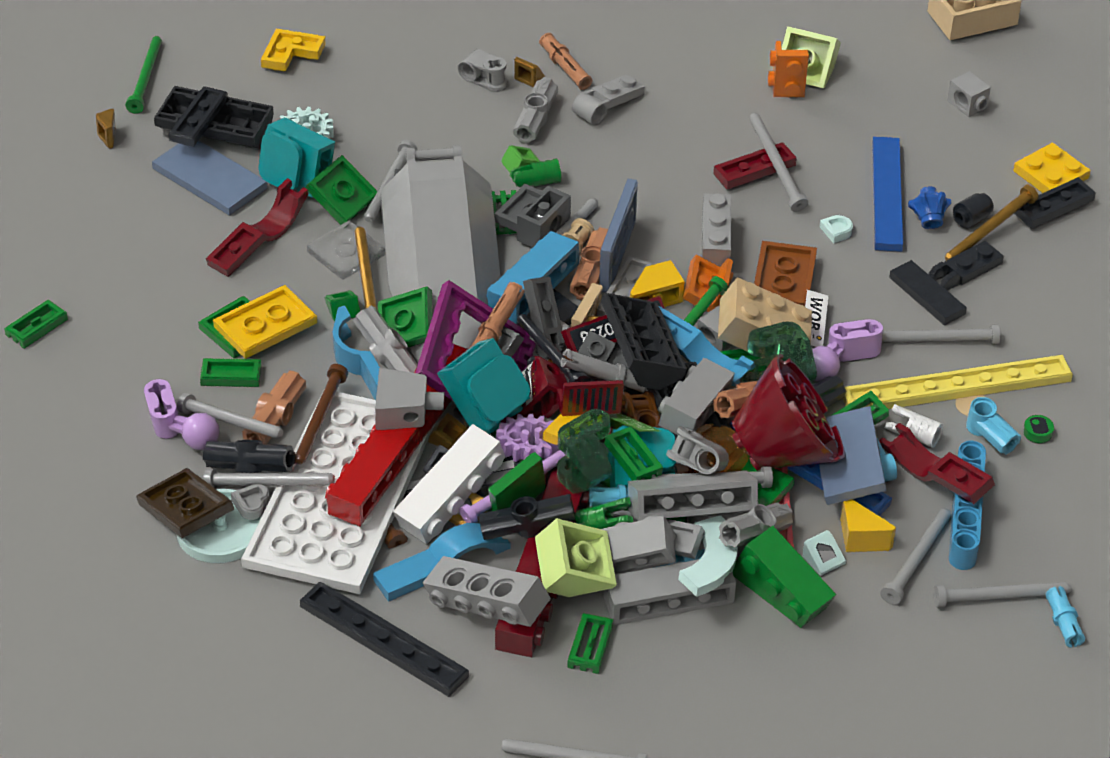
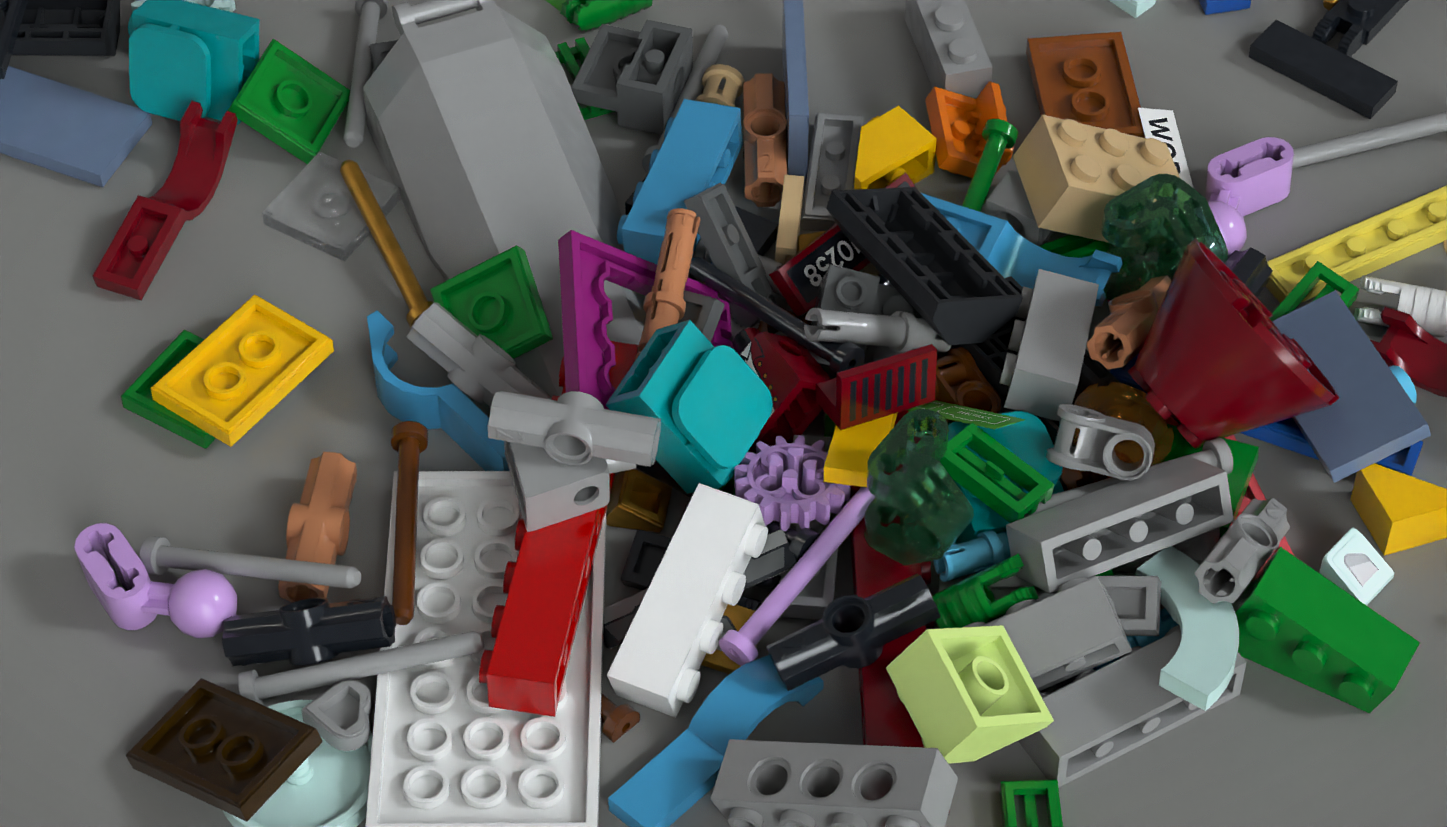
camera: 15 degrees left, 5 degrees up
(230, 372) = (211, 477): green tile -> none
(345, 299) = (360, 300): green slope -> none
(411, 379) = (574, 428): none -> light grey piece
(521, 481) = (818, 577): green tile -> none

